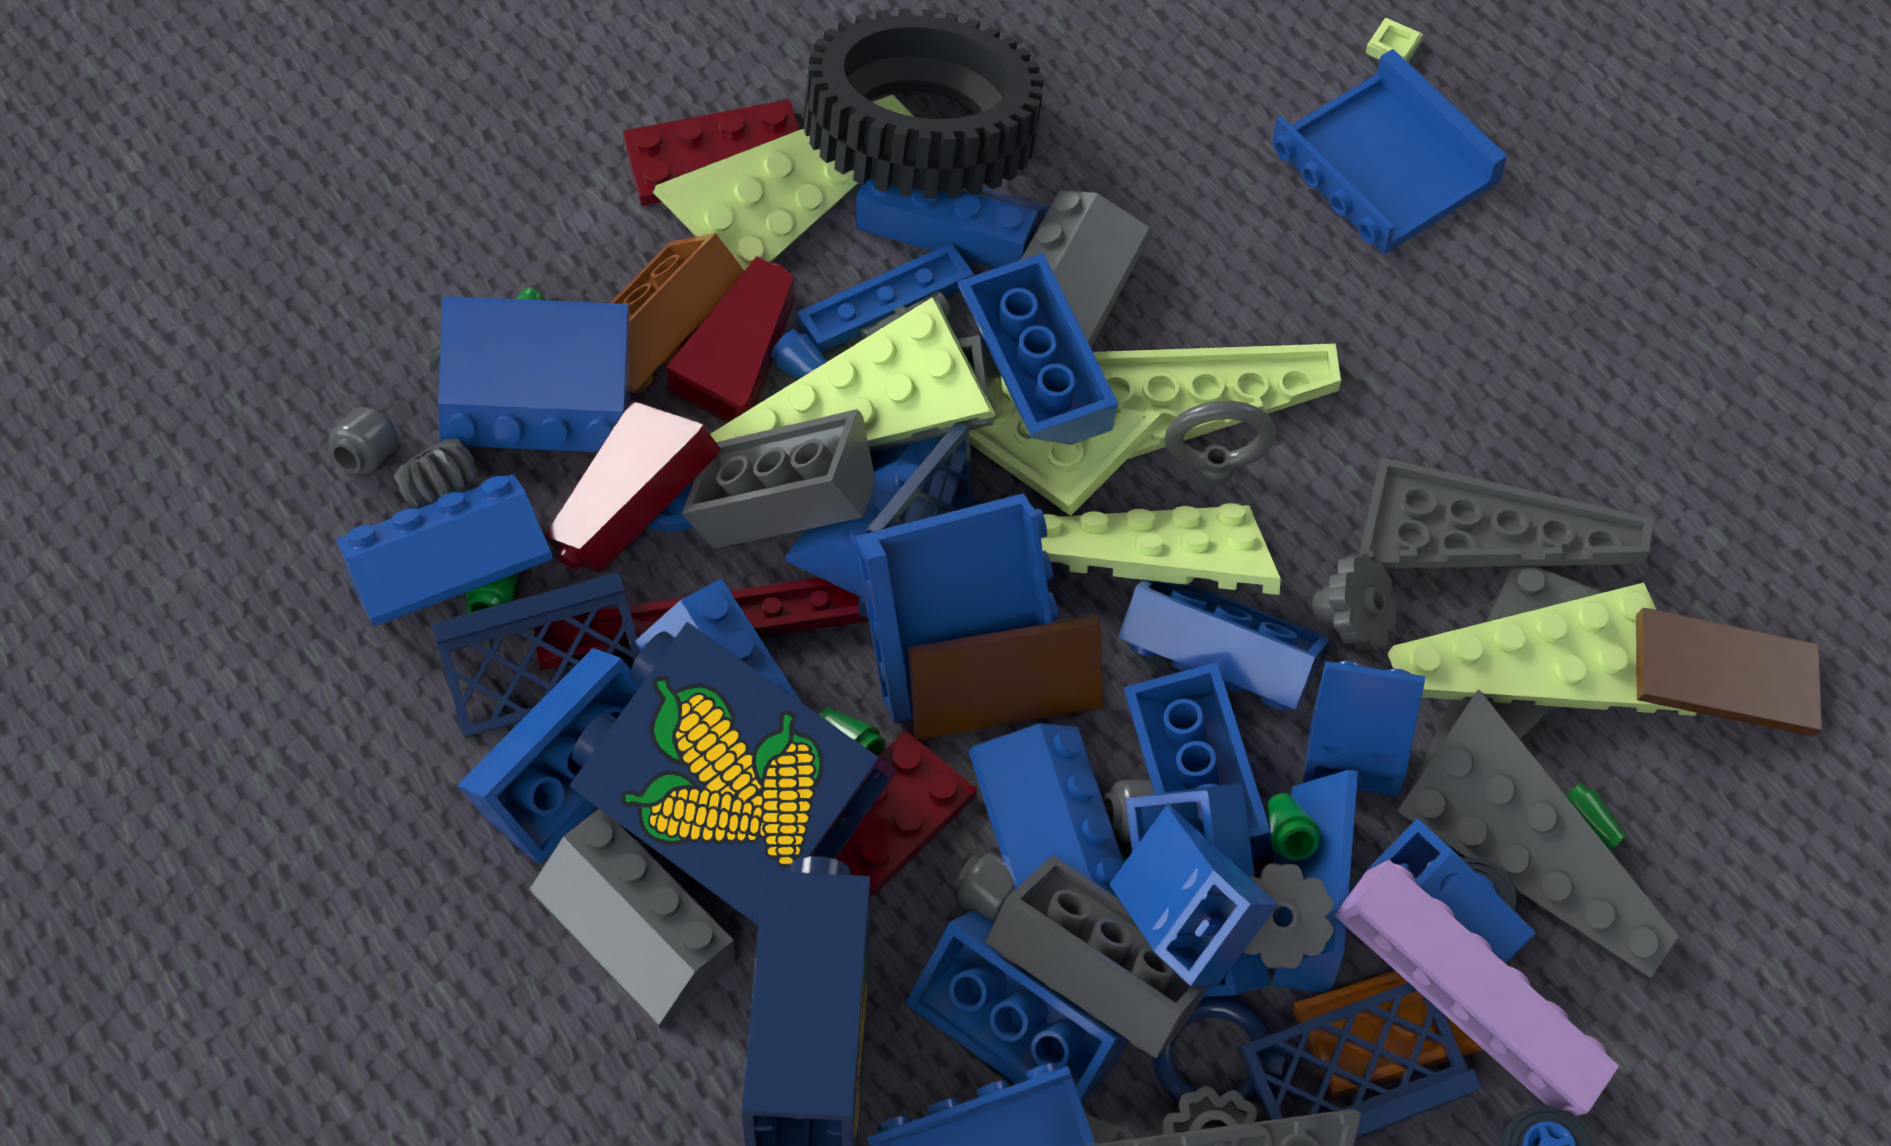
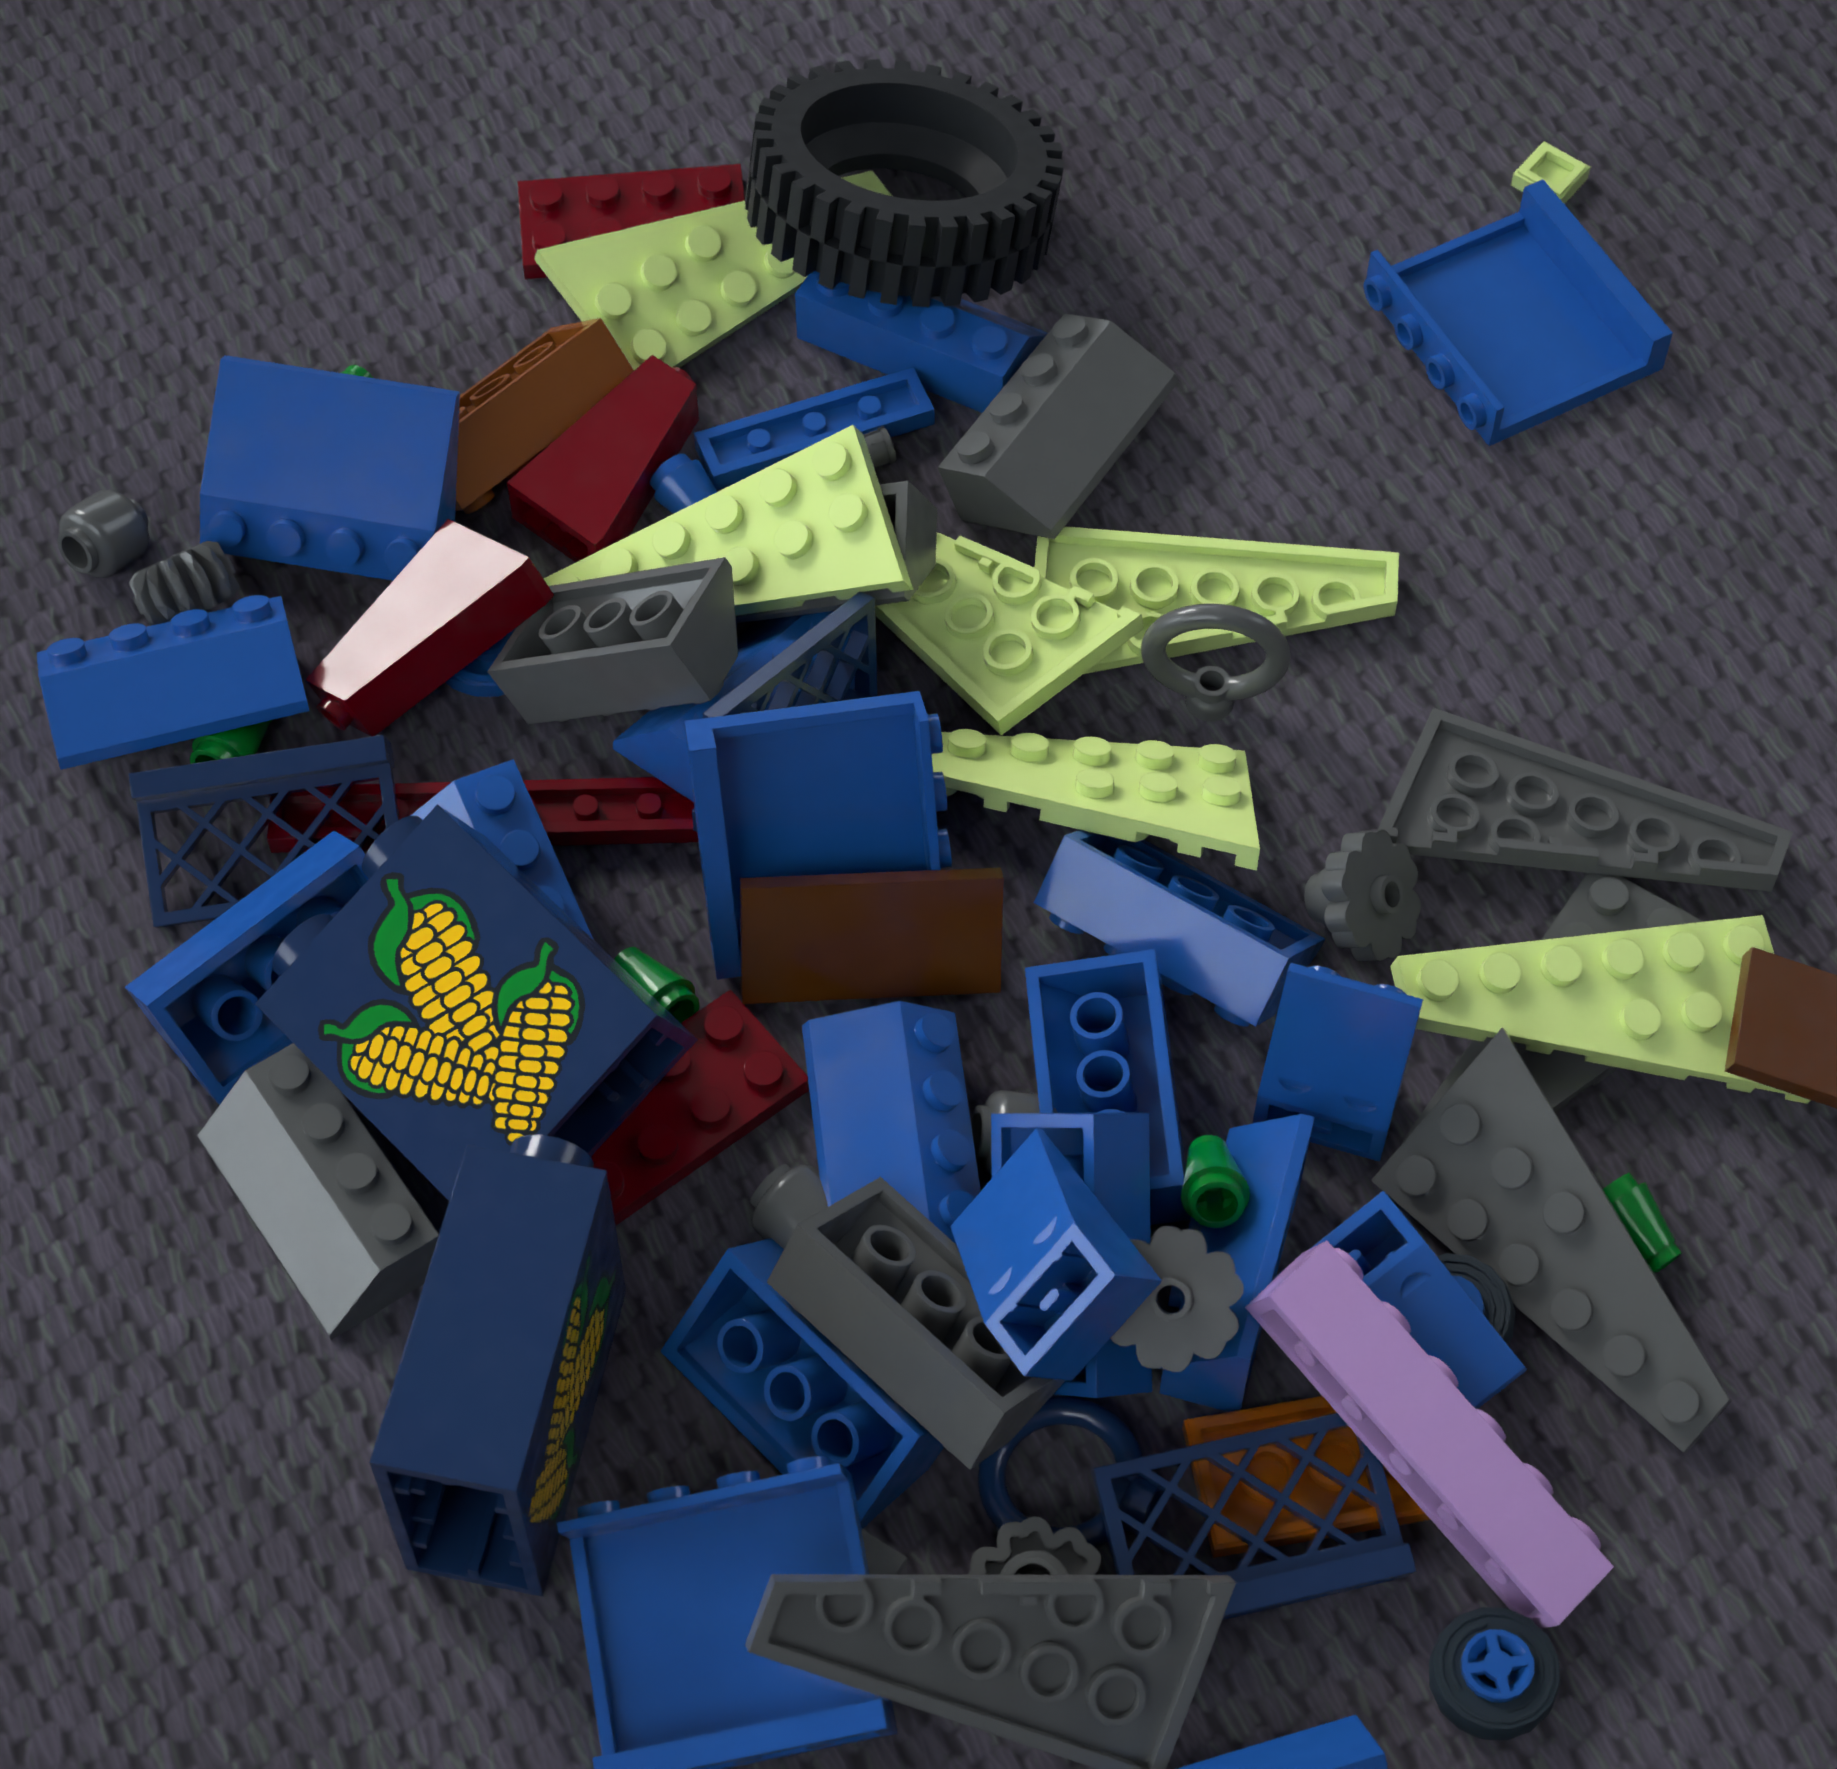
camera: 10 degrees right, 0 degrees up
(1041, 351) = (988, 514): blue slope -> none

